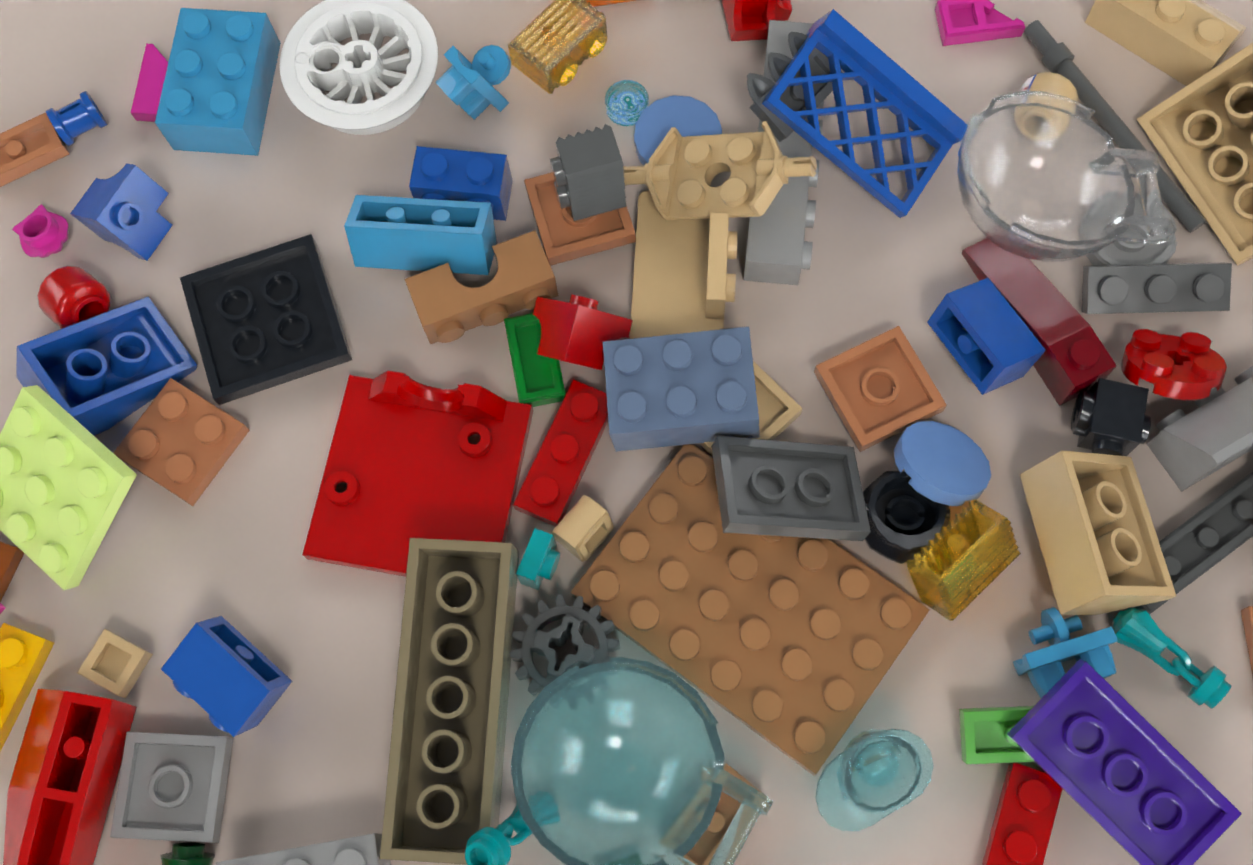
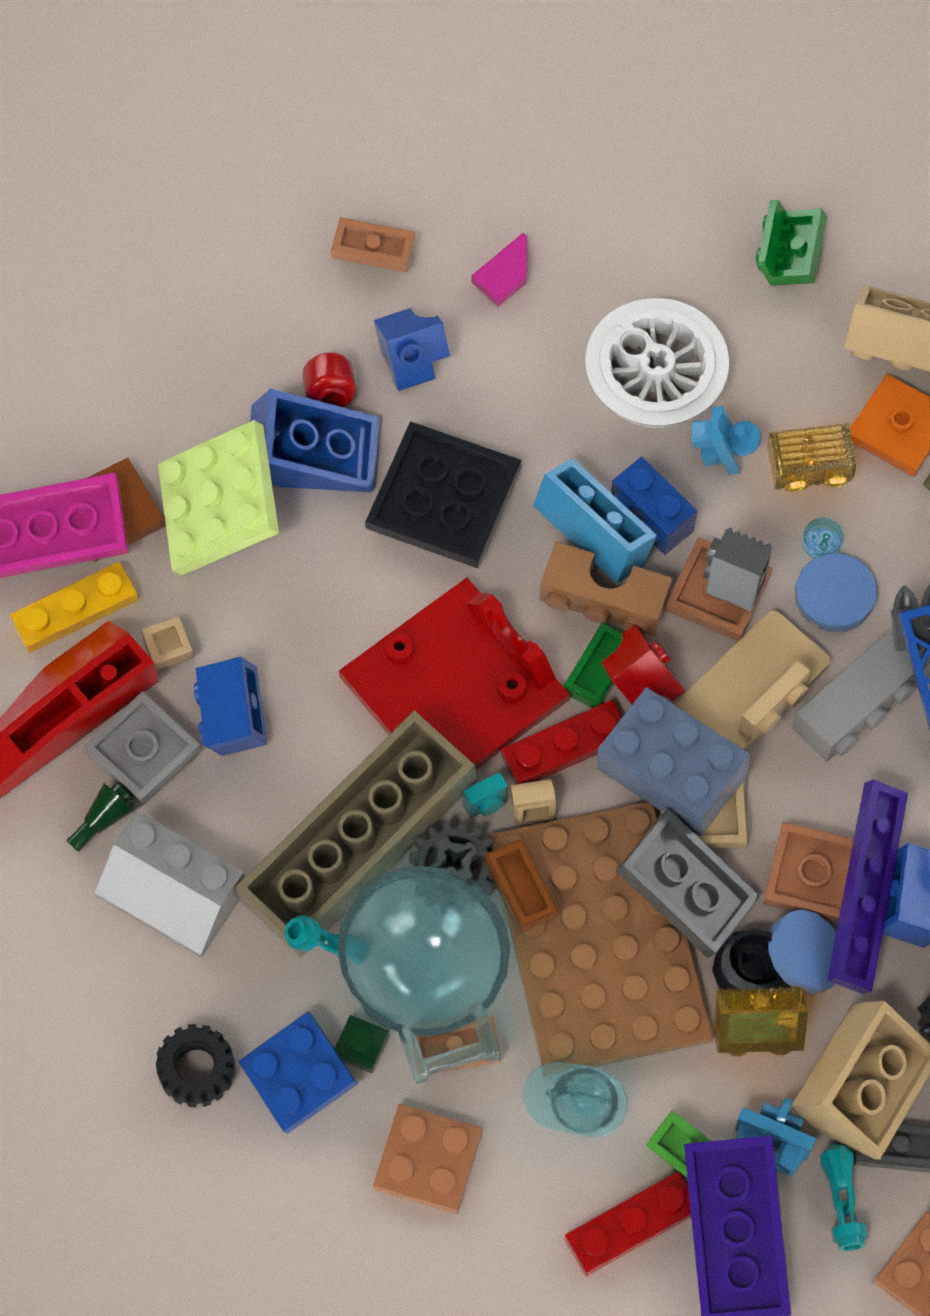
camera: 35 degrees right, 5 degrees down
(42, 233) = (344, 316): dark pink animal -> none
(76, 118) = (431, 251): blue bush -> none
(181, 441) = (322, 534): nougat plate -> none
(218, 81) = (549, 301): dark azure brick -> none
(644, 617) = (520, 885): none -> dark orange tile
(684, 167) = (817, 615): tan plate -> none
(943, 363) = (867, 887): none -> dark purple plate

